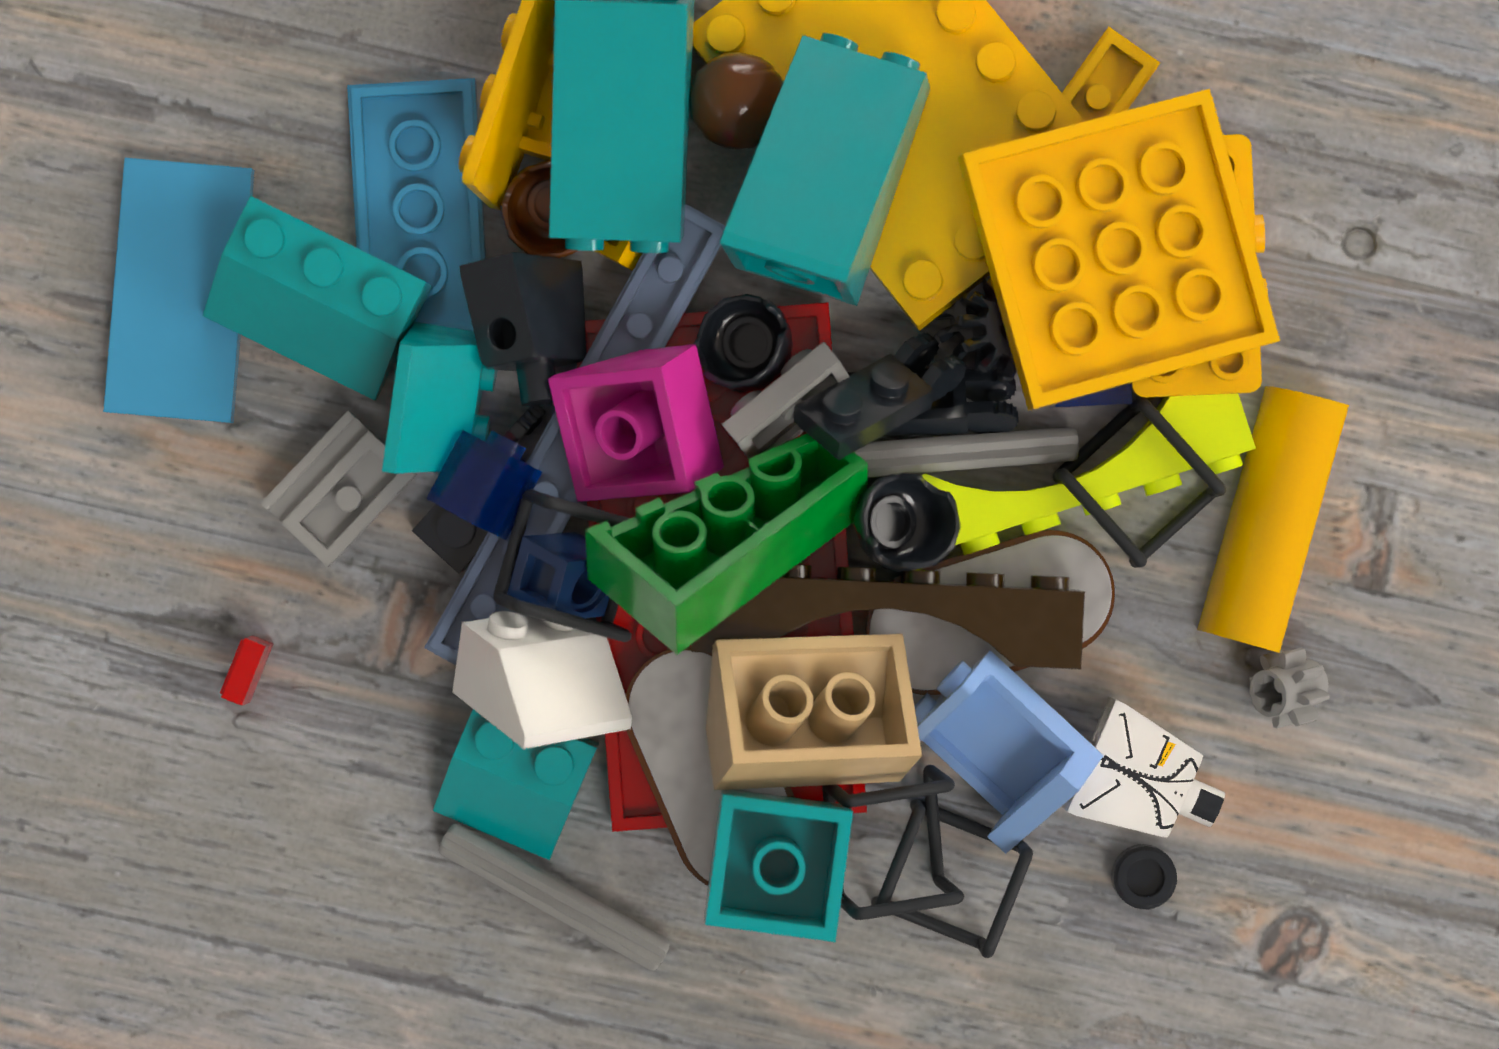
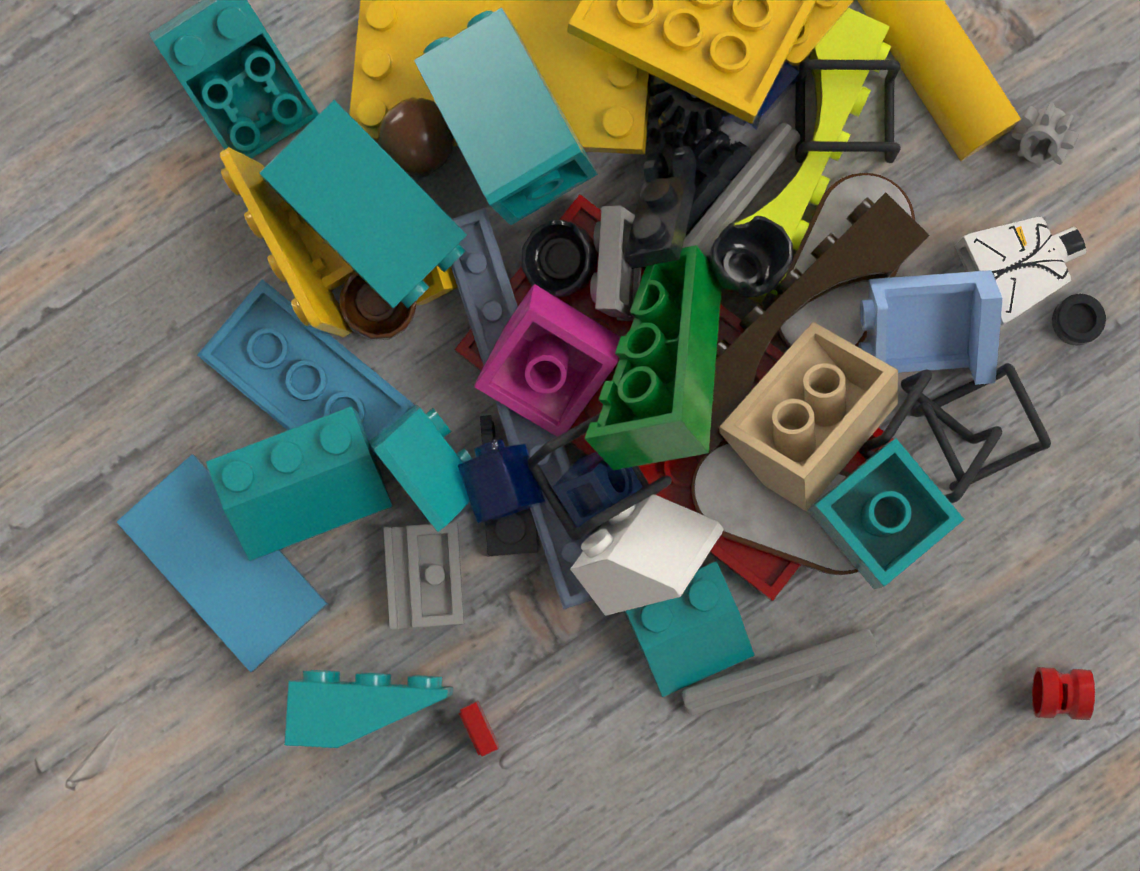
camera: 50 degrees left, 5 degrees down
(142, 531) = (337, 712): none -> teal slope
(527, 317) = (427, 369): black torso -> none

